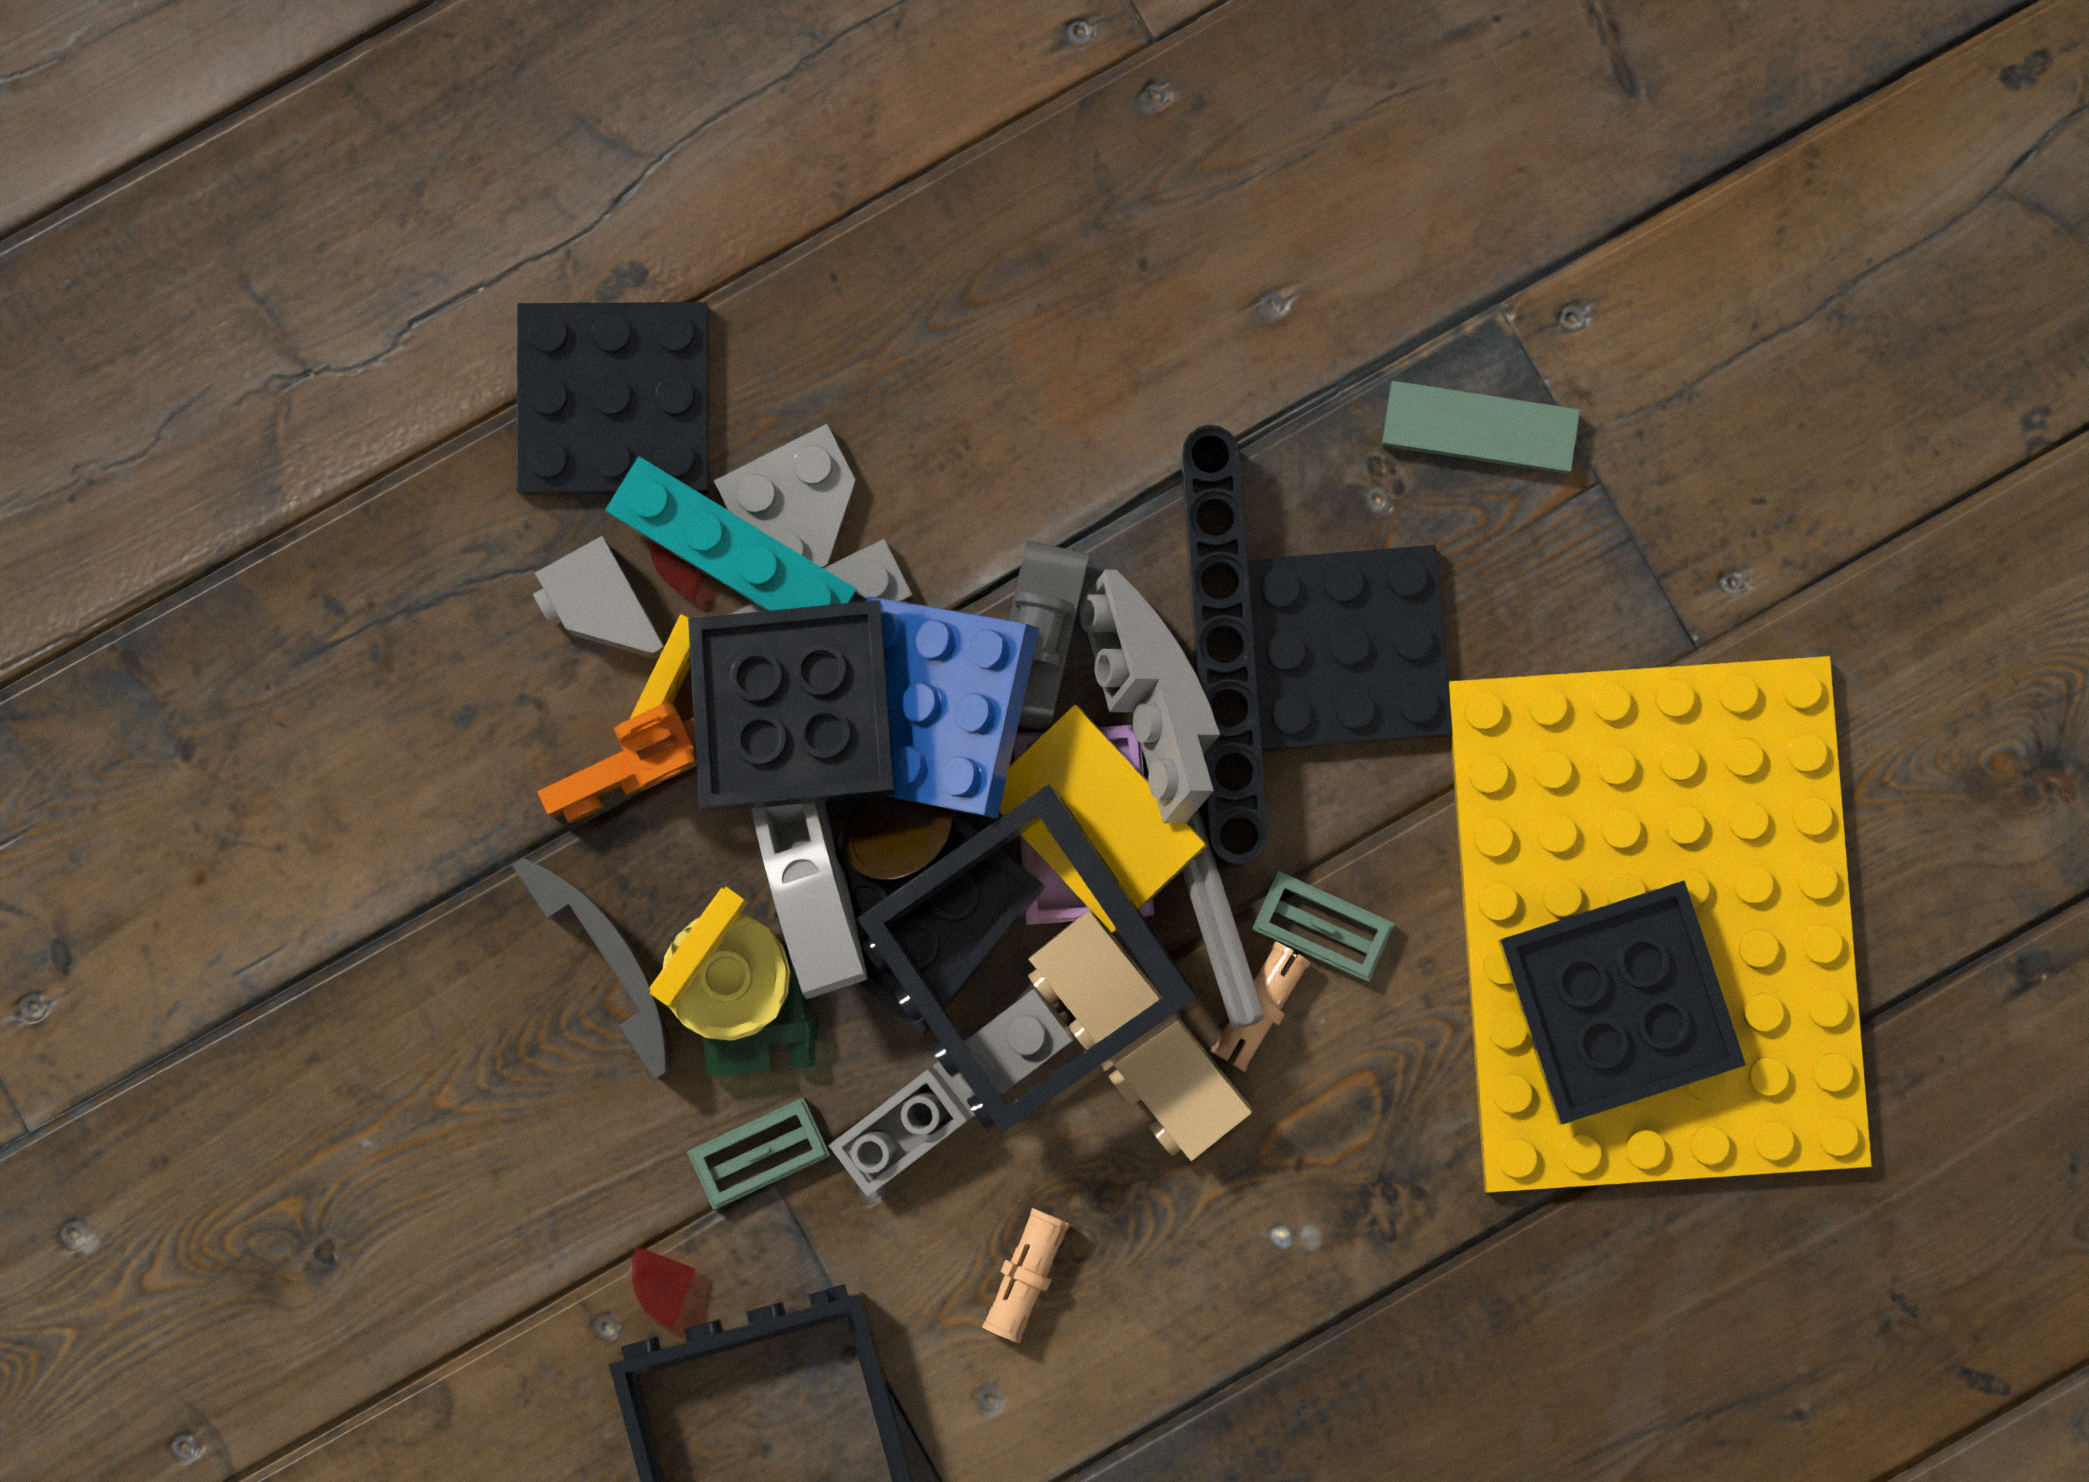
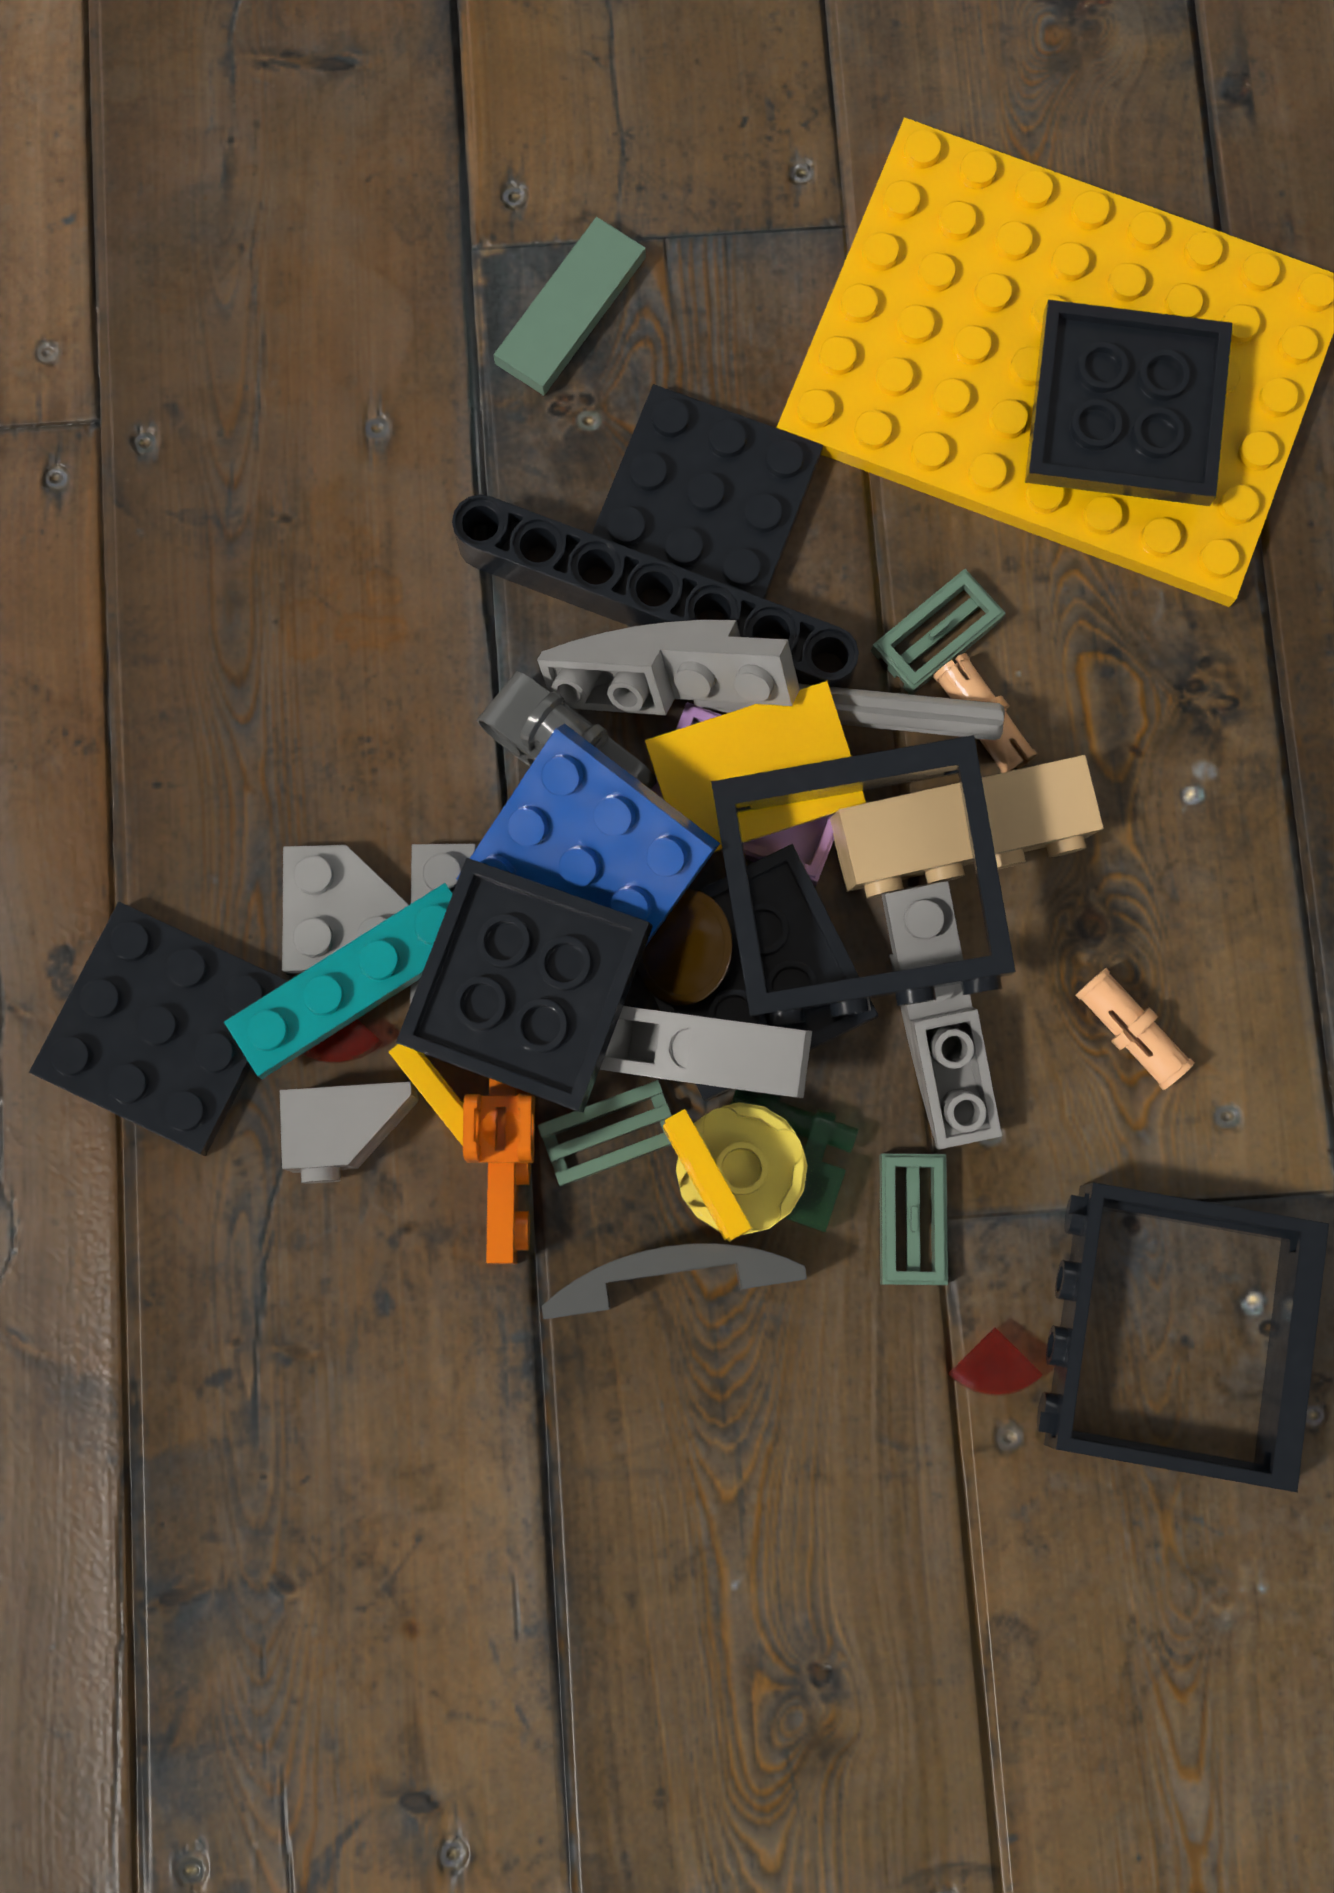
camera: 65 degrees left, 5 degrees down
(668, 806) = (571, 1120): none -> sand green tile

